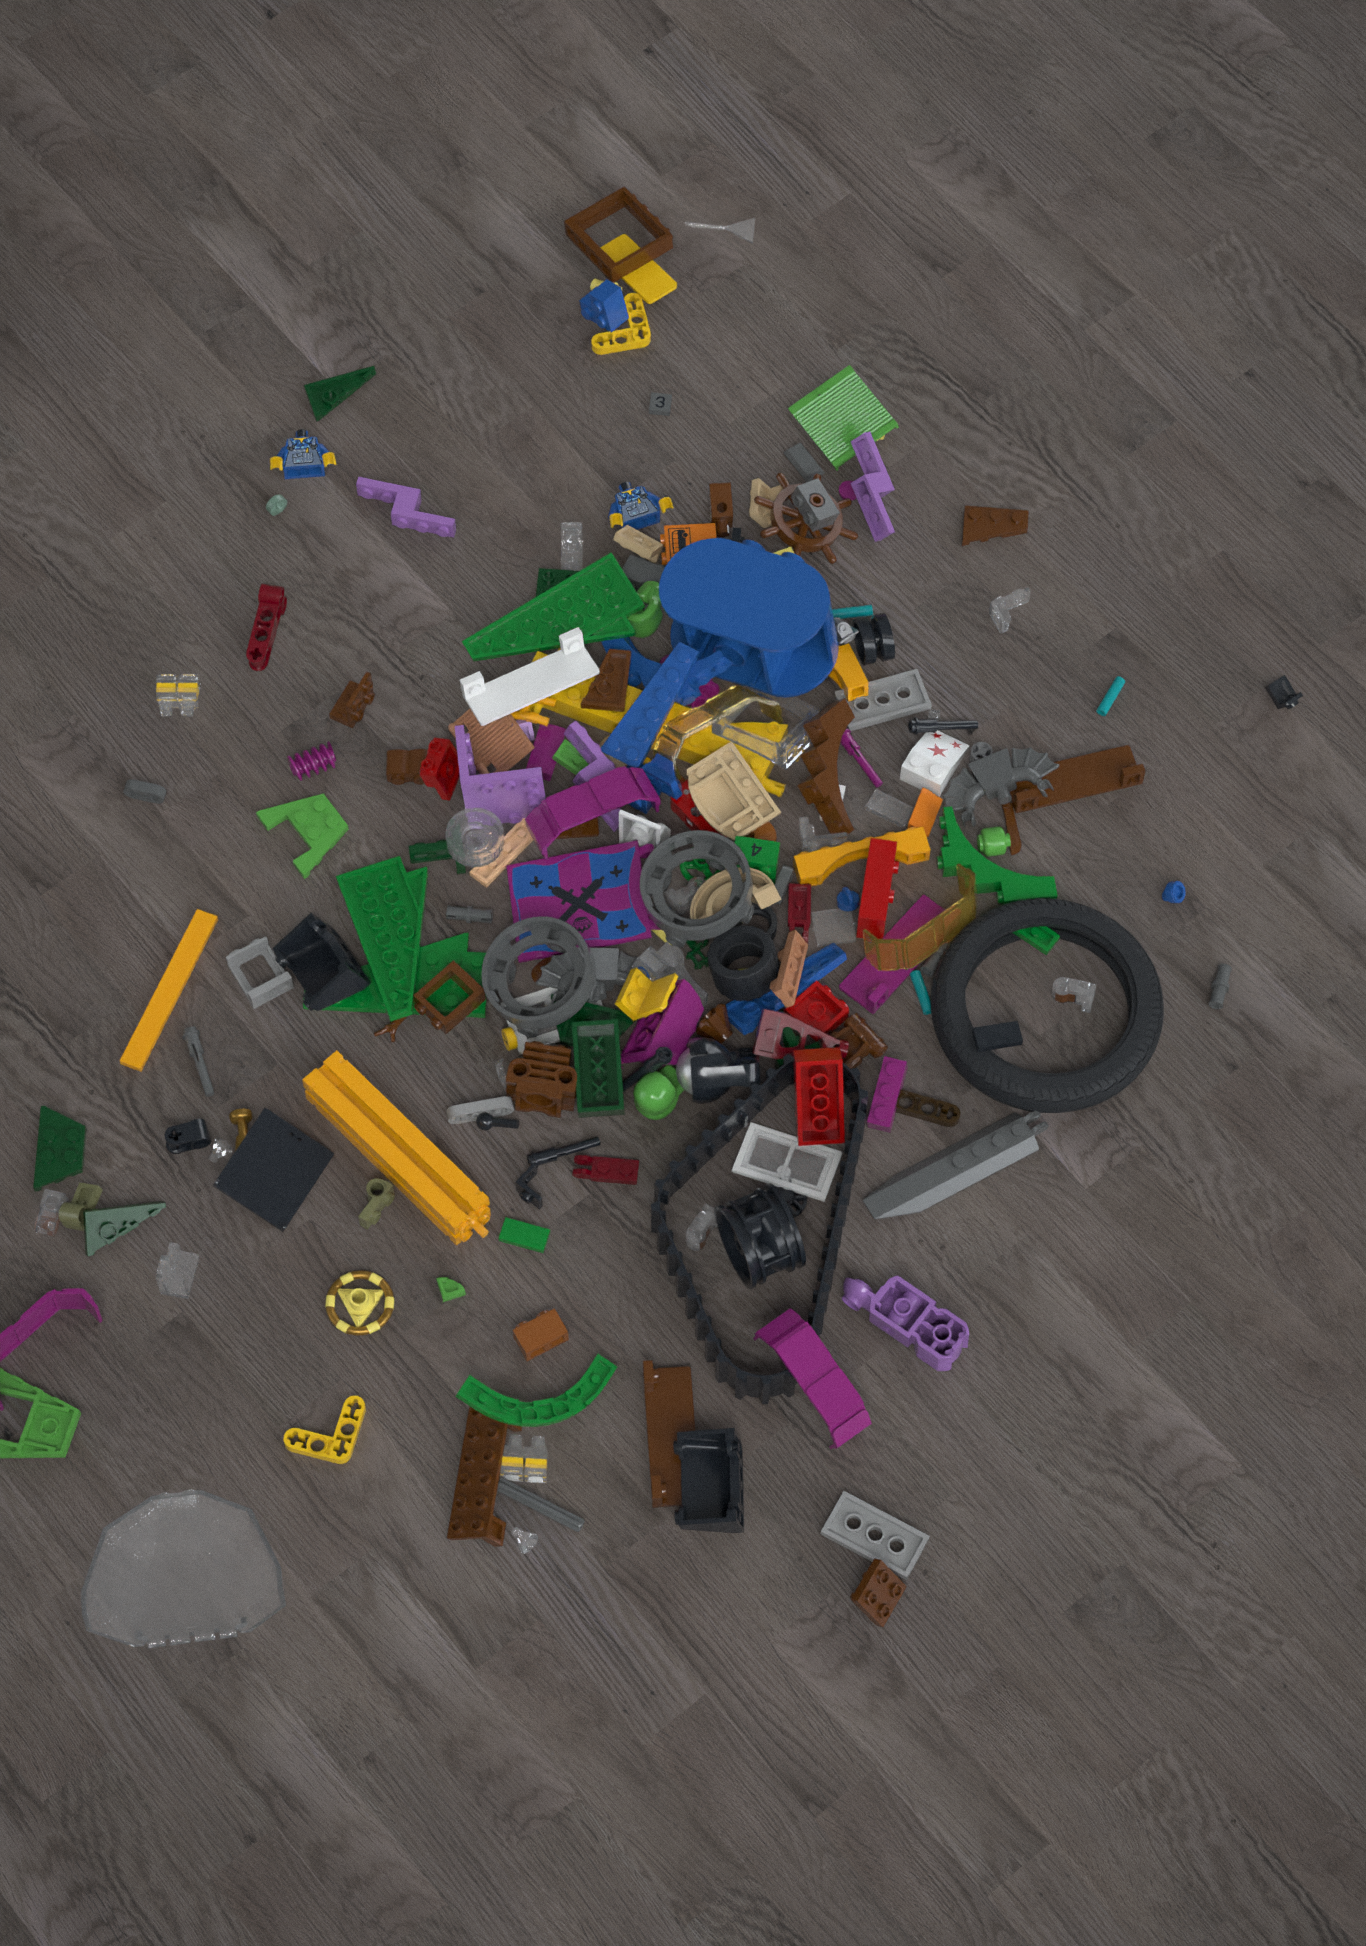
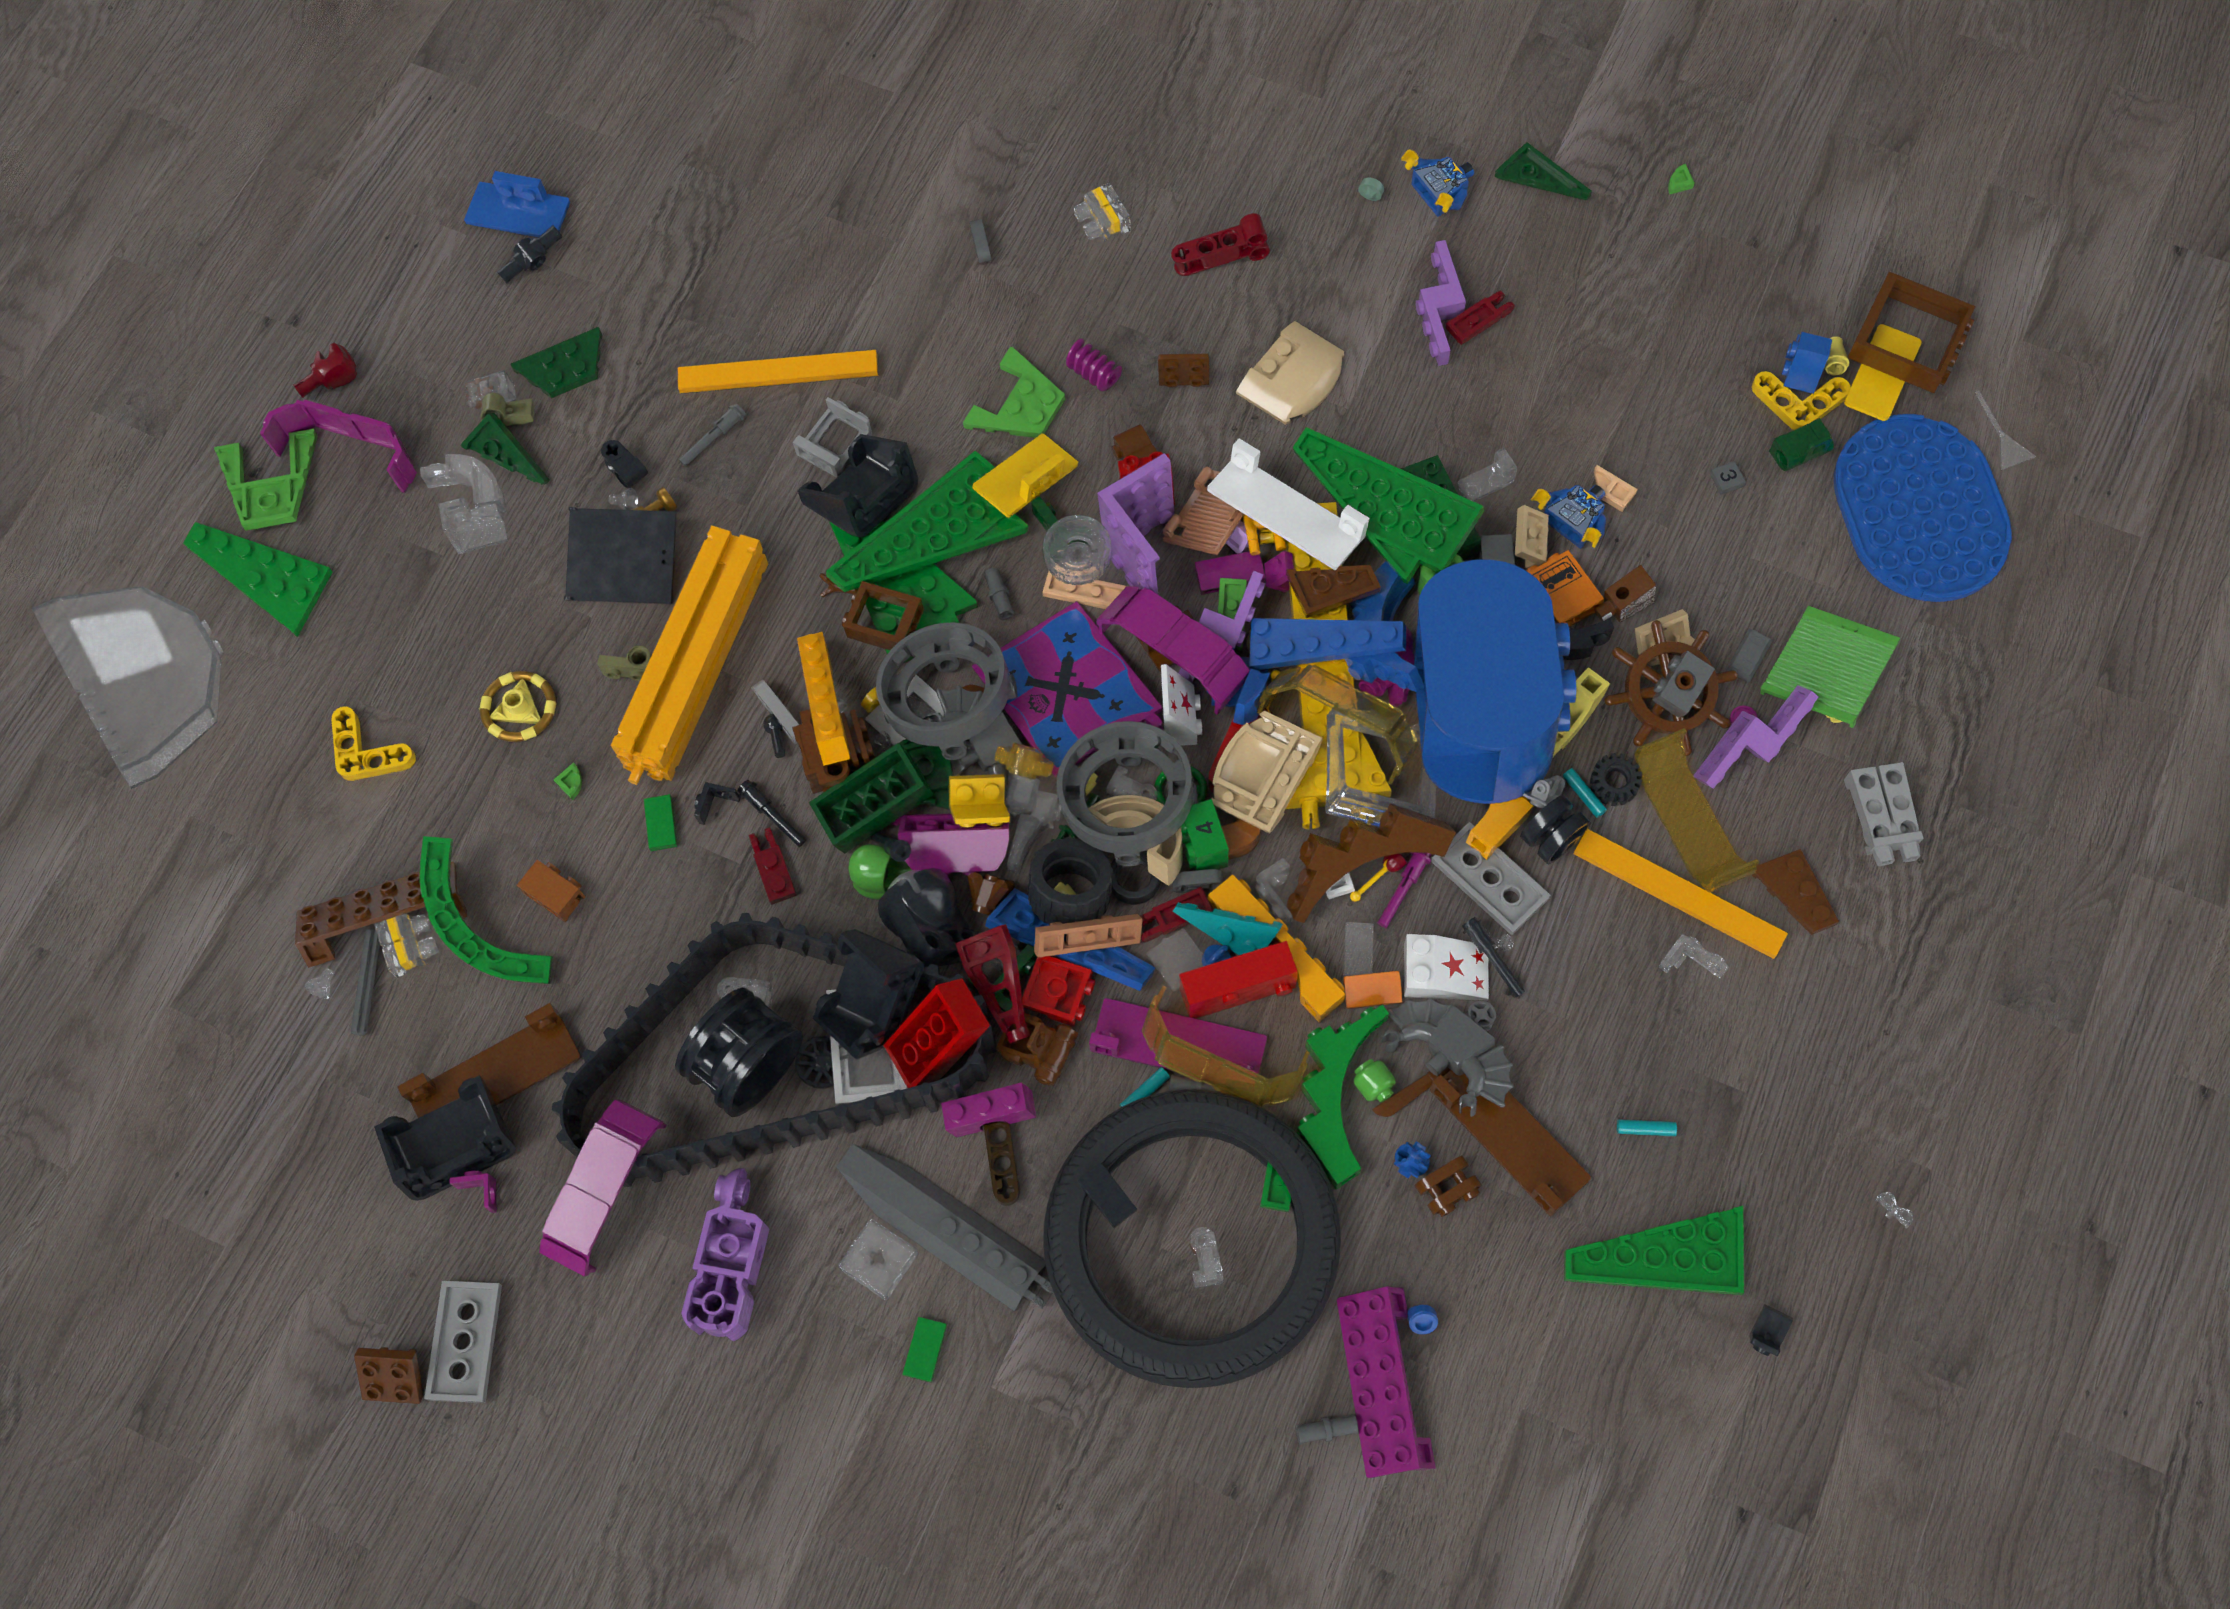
camera: 70 degrees right, 5 degrees up
(120, 1455) = (269, 577): none -> green wing
(126, 1253) = (468, 472): none -> clear arch
(382, 848) = (1025, 475): none -> yellow bracket
(398, 307) = (1680, 180): none -> bright green tile
(402, 633) = (1293, 374): none -> tan slope
(433, 491) = (1478, 317): none -> dark red hinge
(534, 1060) = (822, 698): none -> light orange arch
(568, 713) = (1276, 571): none -> magenta bracket
(628, 474) = (1617, 491): none -> light nougat tile
(633, 946) = (1024, 761): none -> clear yellow gear
(667, 345) = (1801, 445): none -> dark green piece
(753, 303) = (1922, 508): none -> blue tile
(759, 1469) = (477, 1179): none -> magenta bracket
(761, 1128) = (870, 994): none -> black windscreen
(841, 754) = (1390, 863): none -> hinge
(841, 872) = (1238, 932): none -> teal wing
(852, 577) = (1621, 765): none -> black tyre
(907, 559) = (1688, 814): none -> clear yellow windscreen
(954, 1233) = (882, 1277): none -> clear brick
(959, 591) = (1681, 893): none -> light orange tile
(967, 442) = (1885, 812): none -> light grey hips
(1038, 1218) = (924, 1349): none -> green tile
(1061, 844) = (1412, 1159): none -> blue gear
(1099, 824) = (1444, 1202): none -> reddish brown brick
(1204, 937) = (1380, 1383): none -> magenta bracket
(1208, 719) = (1682, 1255): none -> green wing
(1233, 583) = (1888, 1201): none -> clear piece

